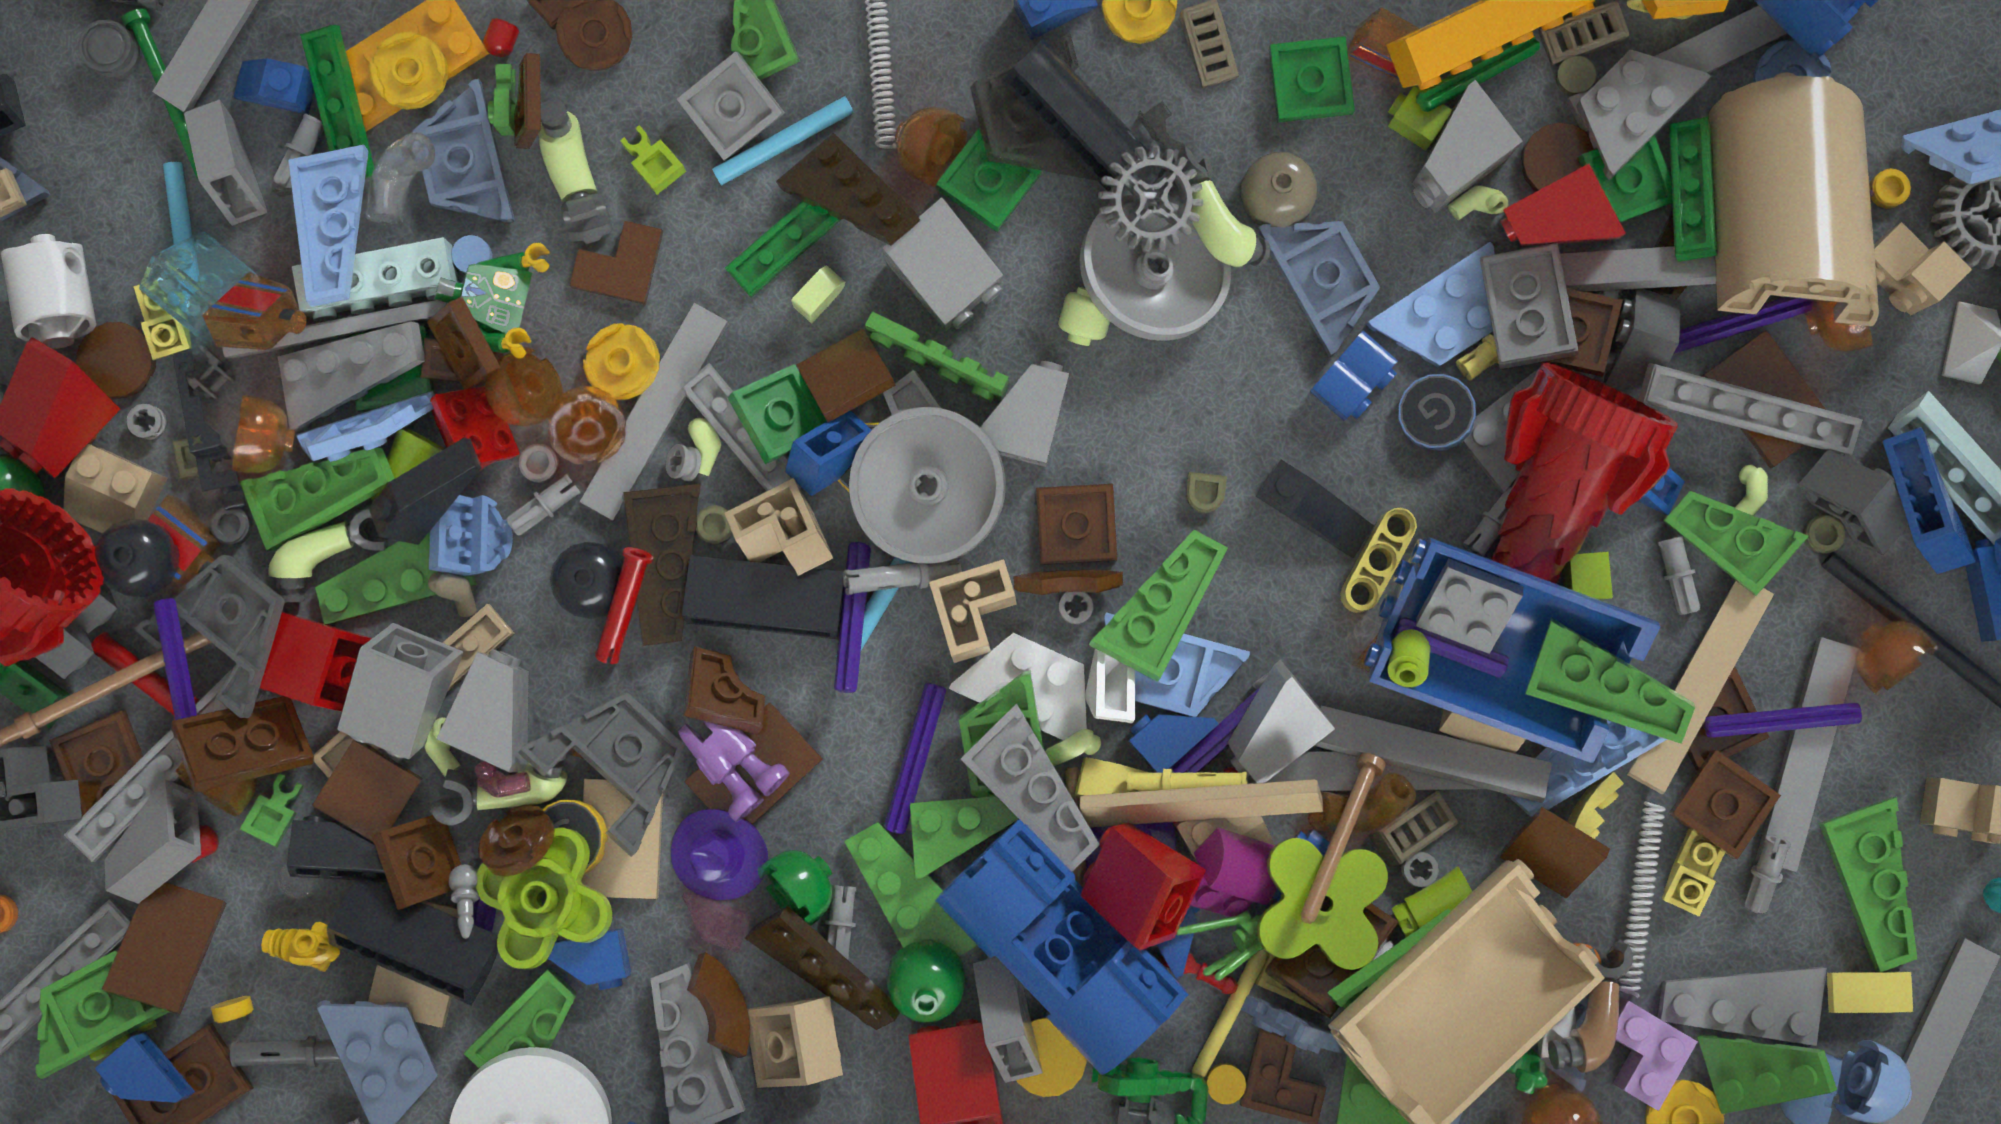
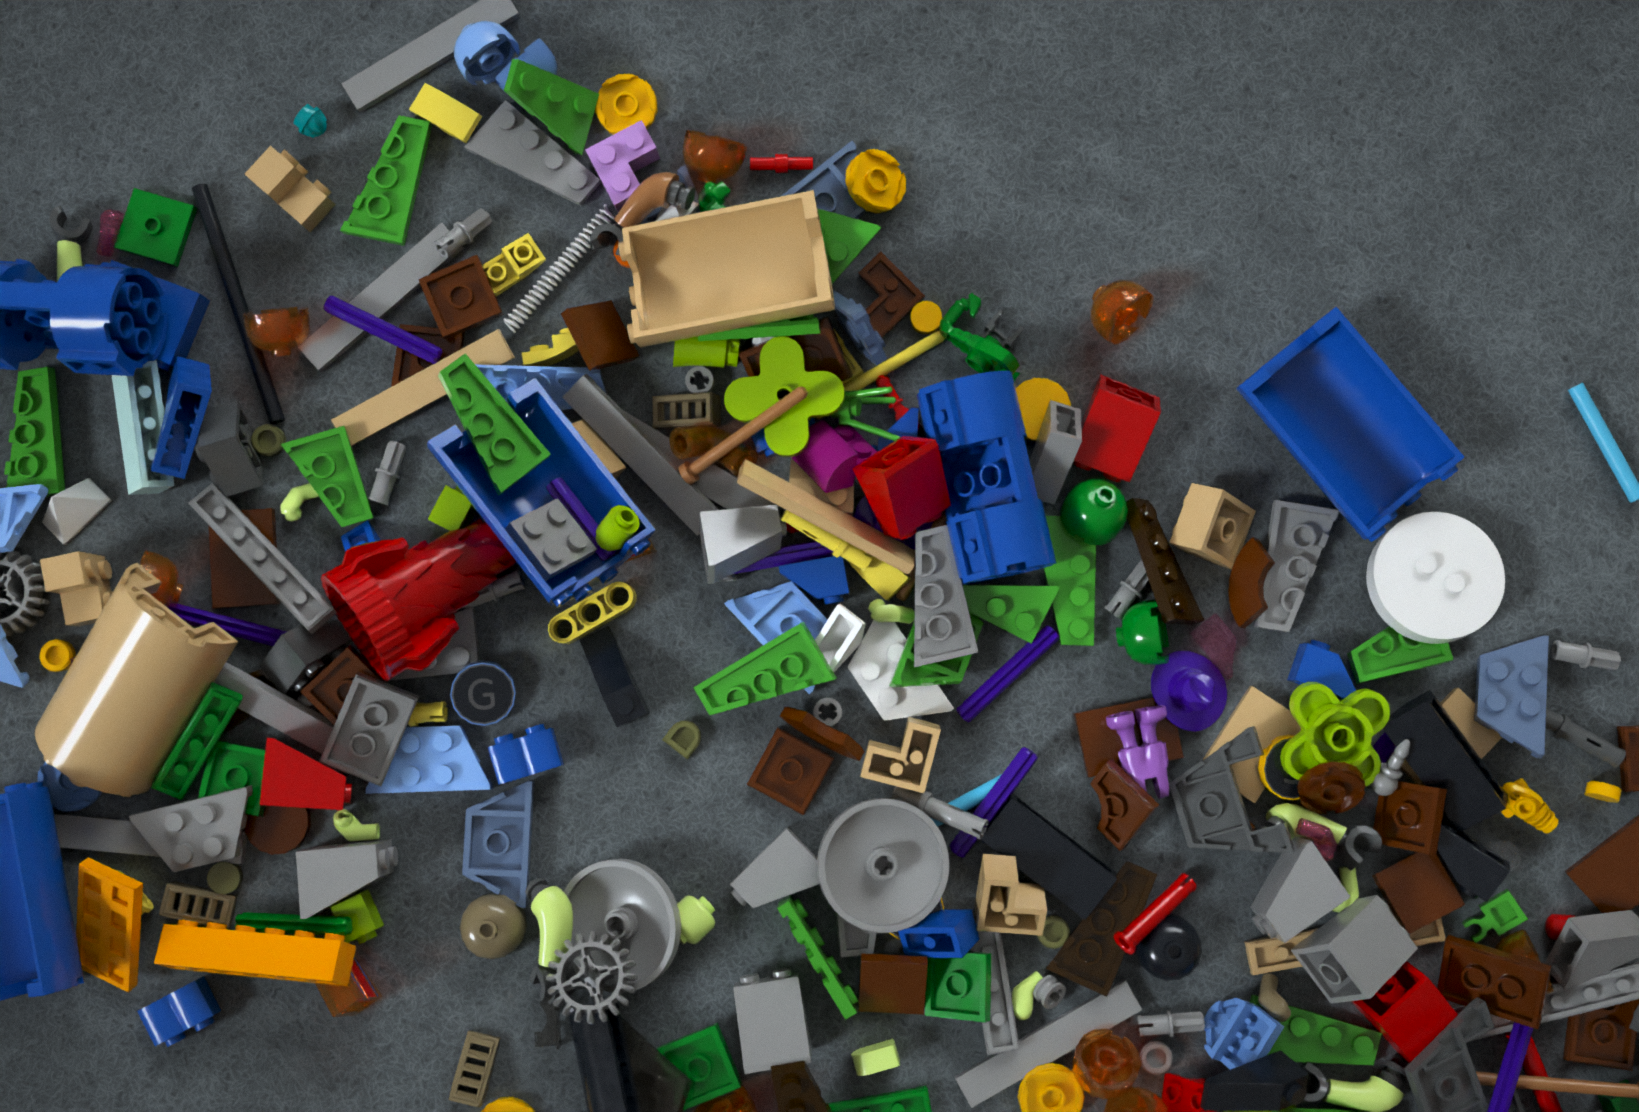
camera: 145 degrees left, 0 degrees up
(1311, 79) = (417, 994): green plate -> none

